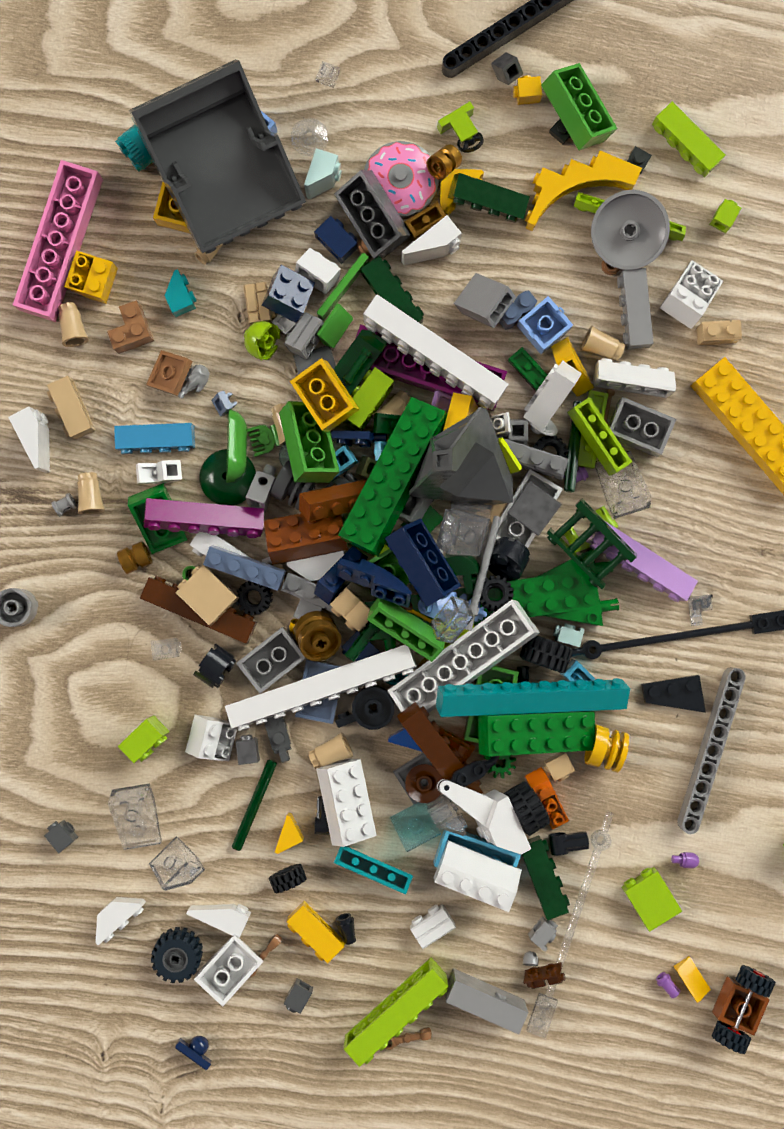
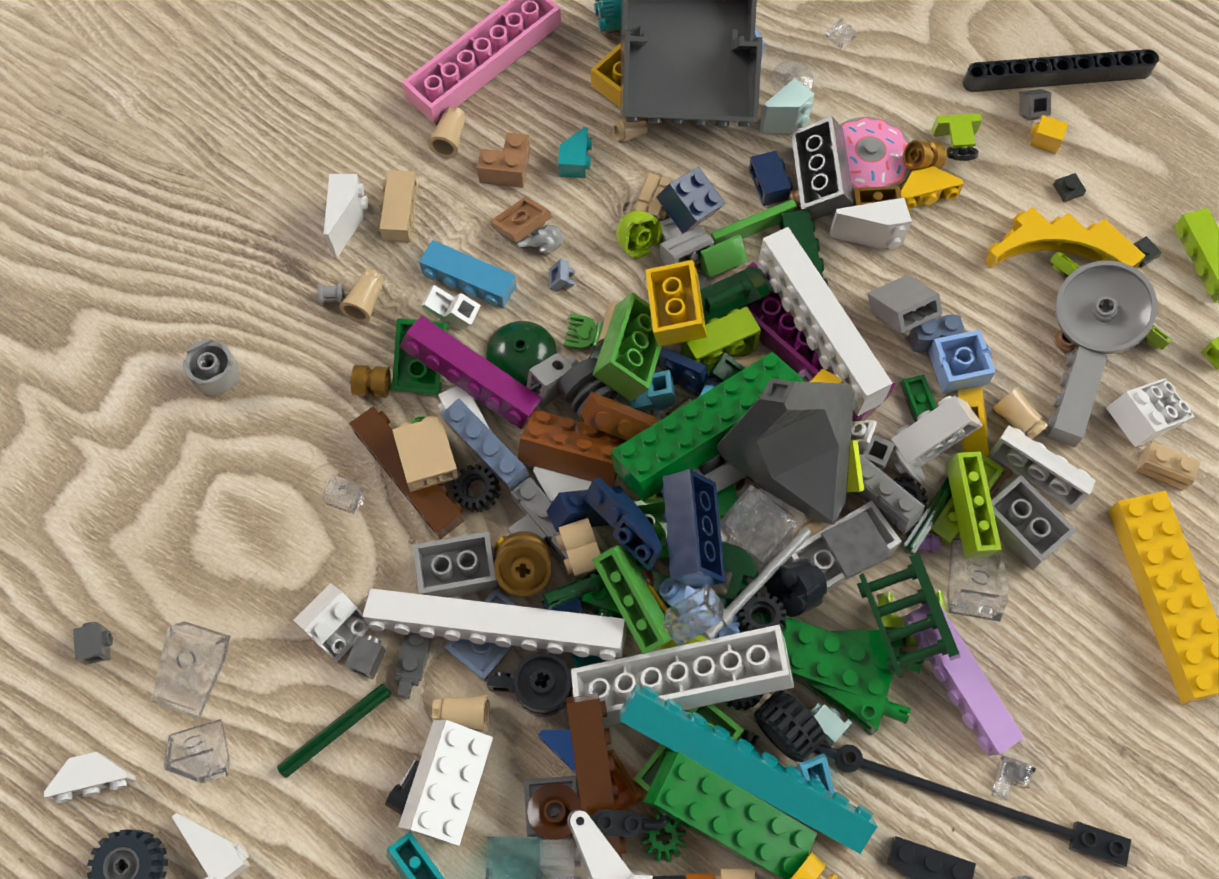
camera: 30 degrees right, 20 degrees down
(91, 276) = (496, 98): yellow slope -> none
(146, 736) = (256, 578): lime brick -> none
(214, 666) = (386, 539): black brick -> none
(236, 446) = (548, 321): bright green brick -> none
(287, 878) = (319, 840): black tyre -> none
(290, 834) = (354, 788): yellow slope -> none
(318, 269) = (737, 195): white brick -> none
(488, 197) = (958, 207): dark green brick -> none
(579, 106) = (1099, 168): bright green brick -> none

